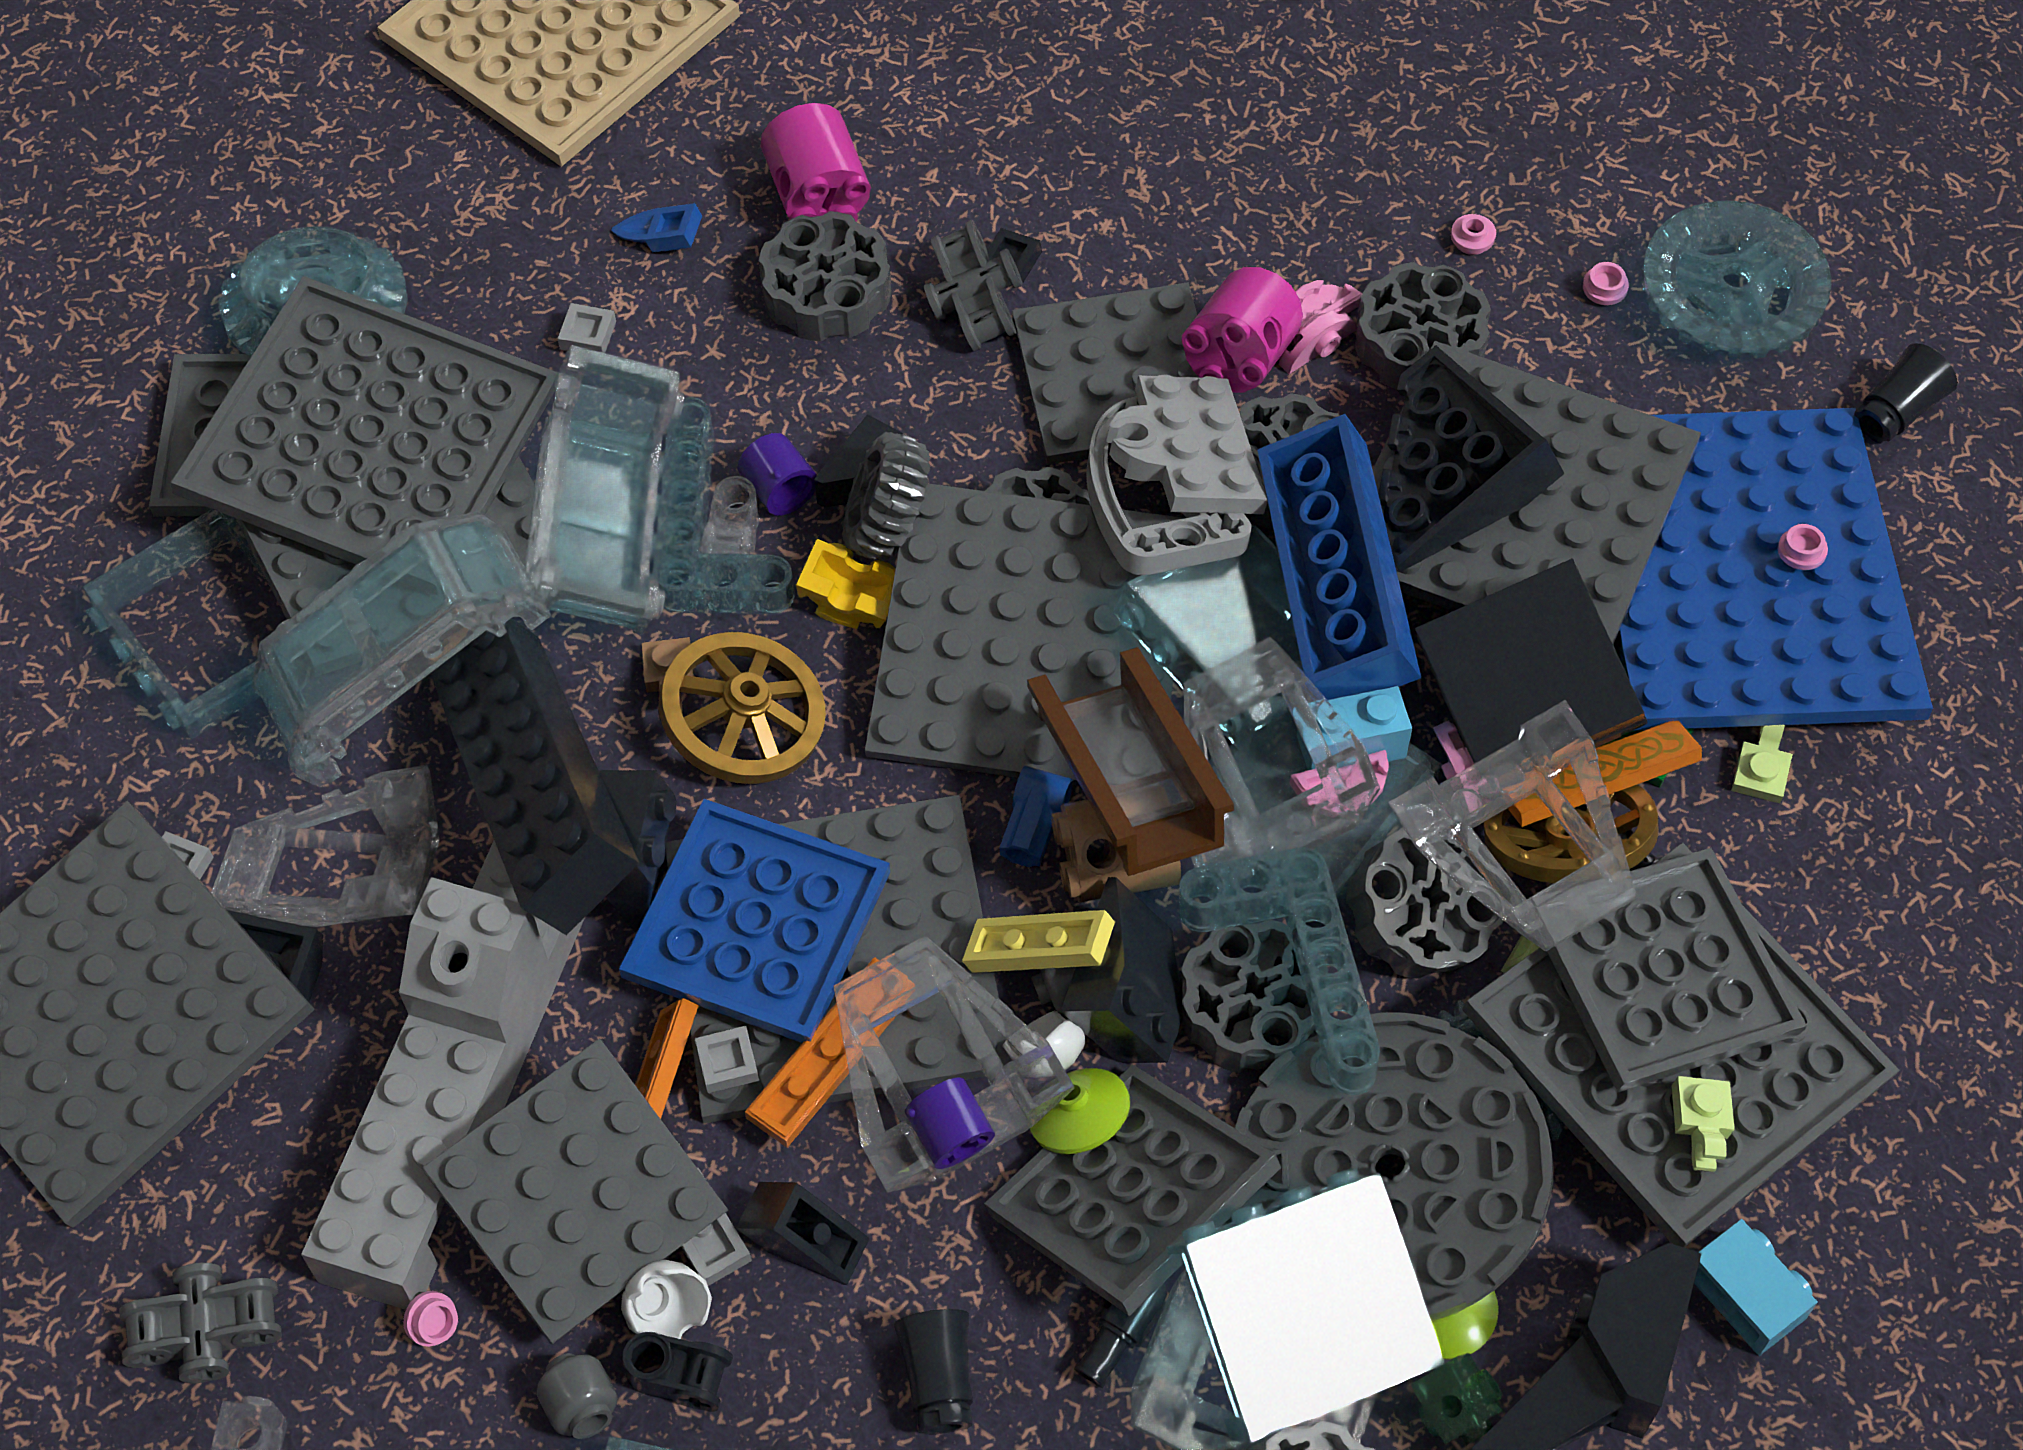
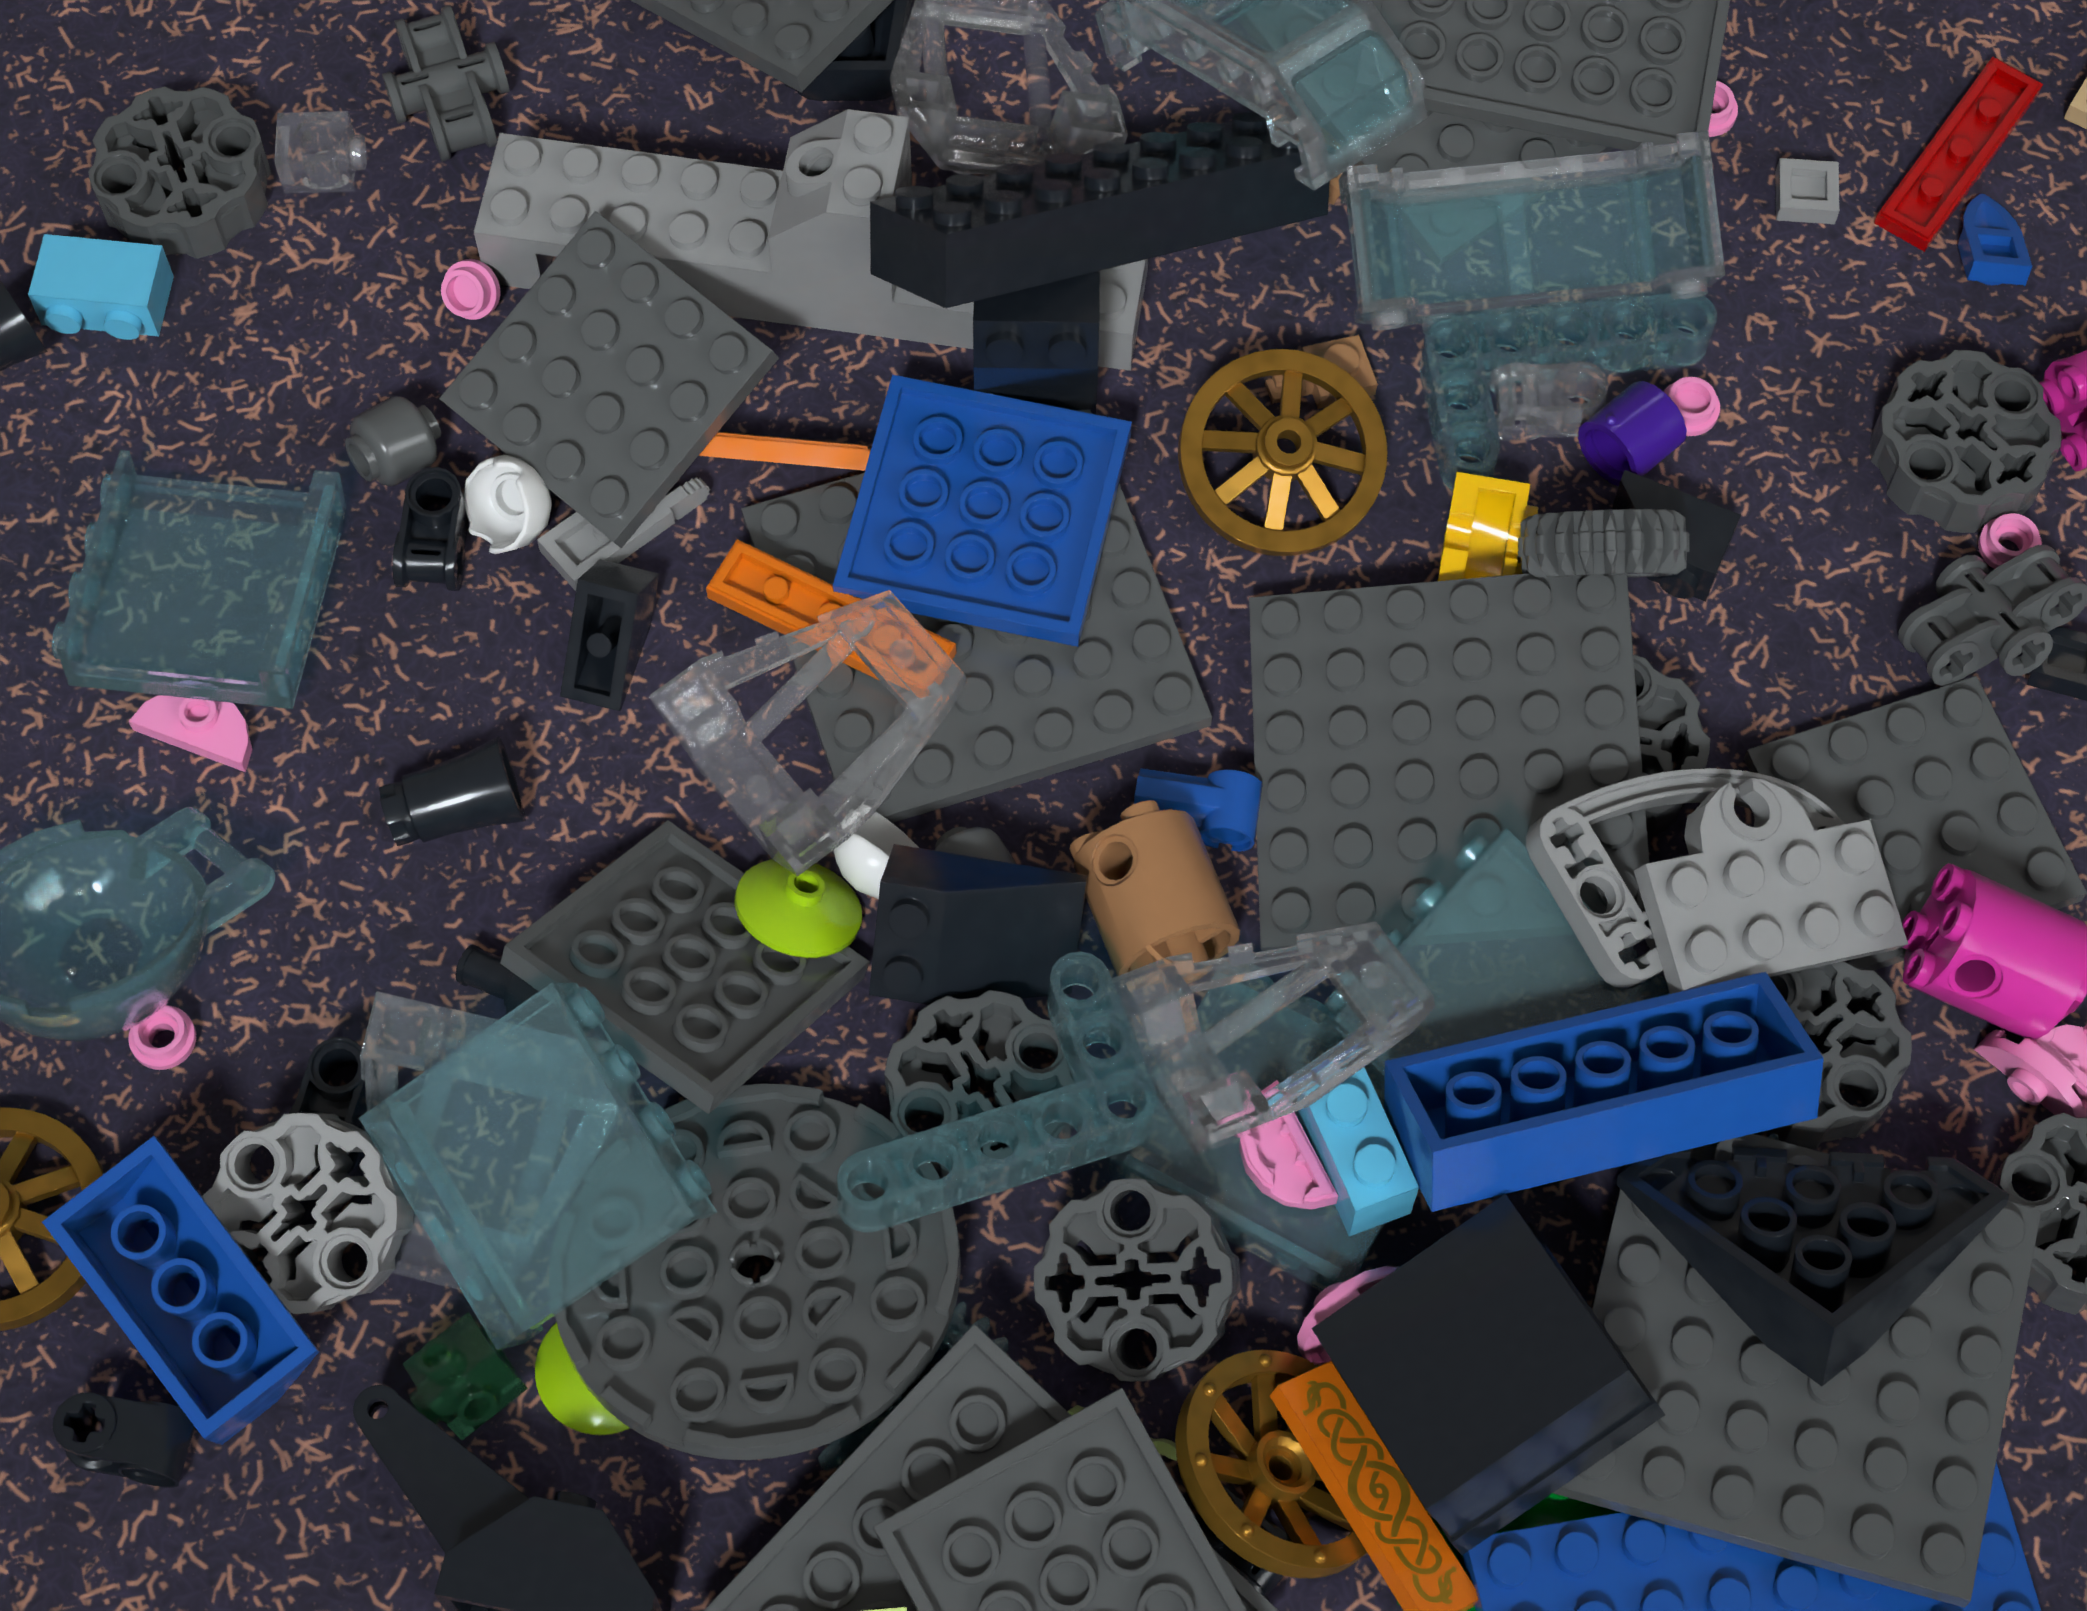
camera: 80 degrees right, 5 degrees up
(575, 235) = (1958, 154): none -> red tile
(726, 1059) = (798, 508): light grey plate -> none
(749, 431) = (1696, 403): none -> bright pink plate
(910, 260) = (2007, 527): none -> bright pink plate
(949, 1123) = (740, 748): dark purple piece -> none
(1039, 941) = (985, 809): light yellow plate -> none
(1138, 767) = (1227, 861): reddish brown piece -> none
(1499, 781) = (1249, 1278): clear windscreen -> none

